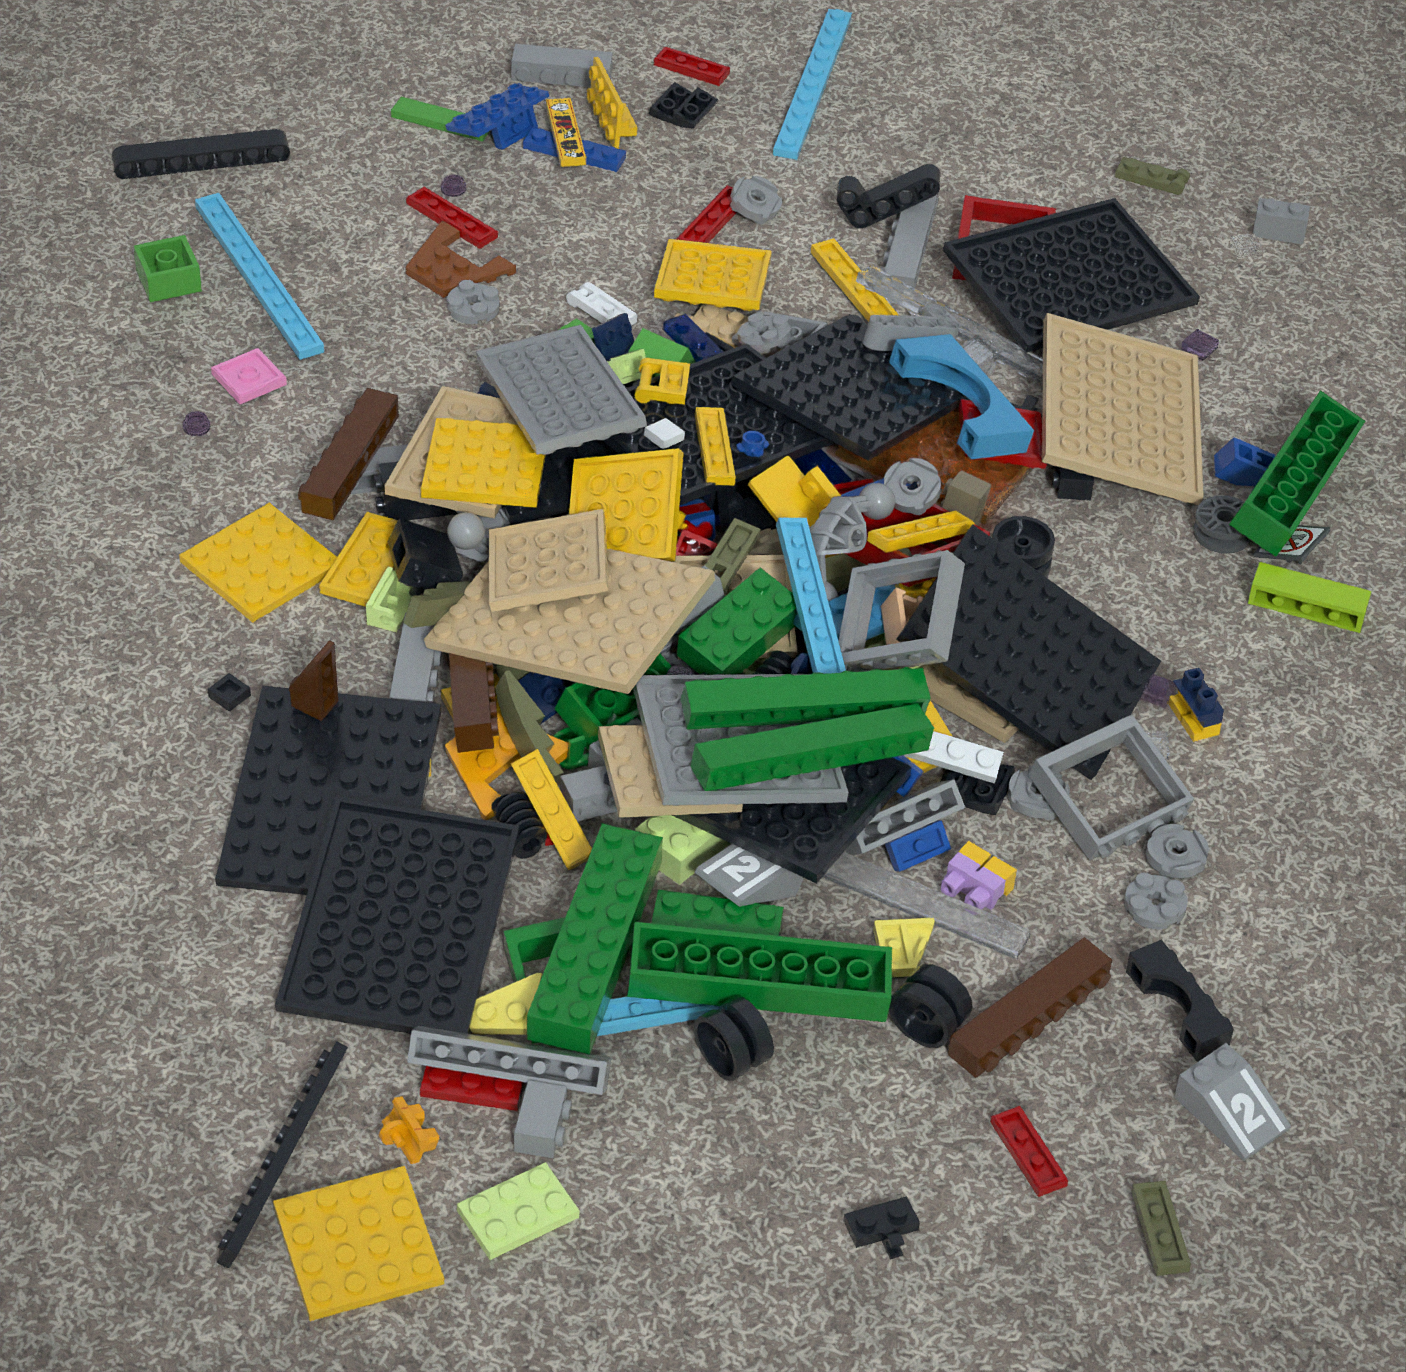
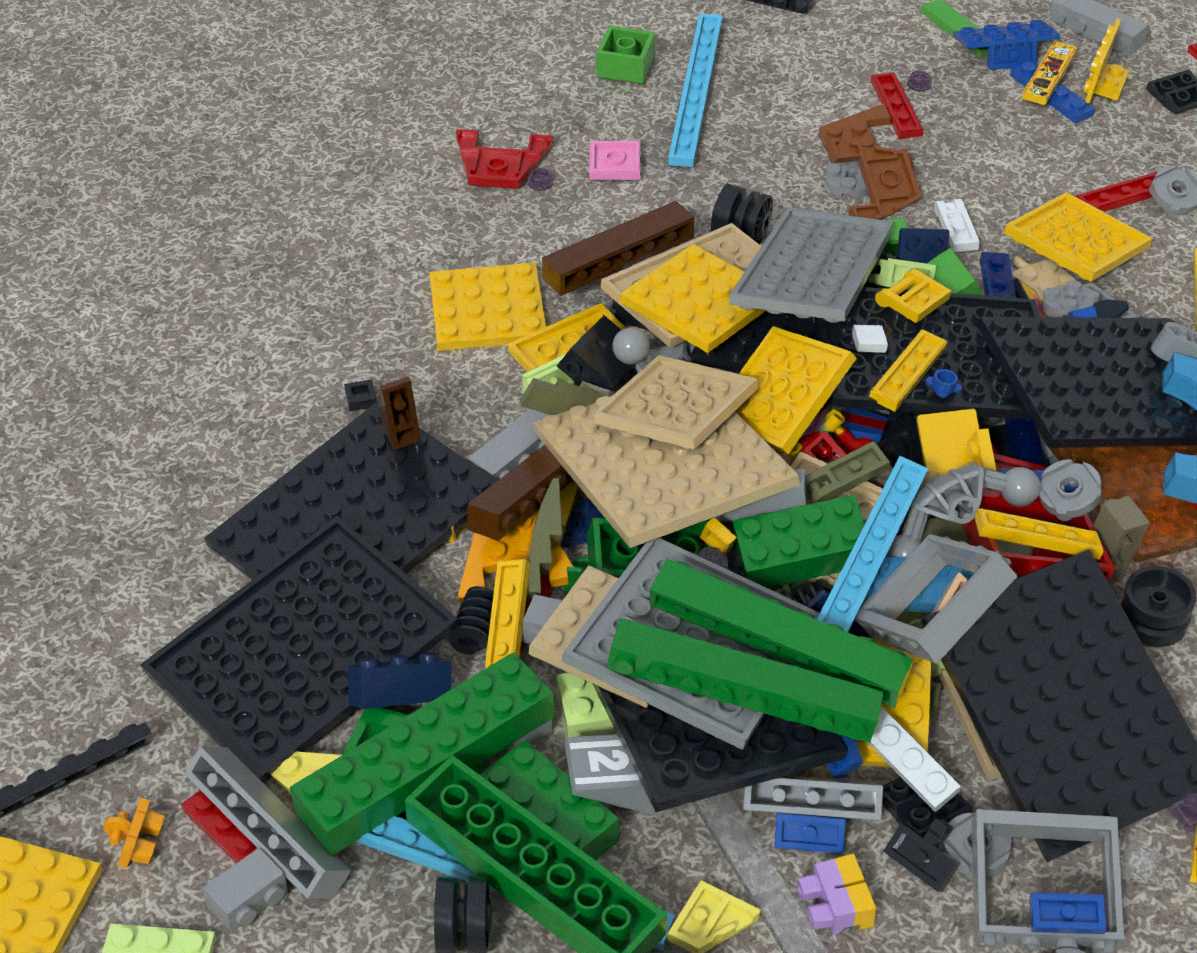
camera: 40 degrees right, 0 degrees up
(139, 429) = (498, 165): none -> red wing
(421, 378) = (748, 213): none -> black wheel
(511, 288) = (885, 174): none -> dark orange wing
(517, 898) = (398, 680): none -> dark blue brick
(673, 655) = (717, 535): none -> yellow tile
(800, 329) = (1102, 309): none -> black piece
(1010, 818) = (922, 853): none -> black plate
(1149, 799) = (1067, 913): none -> blue plate

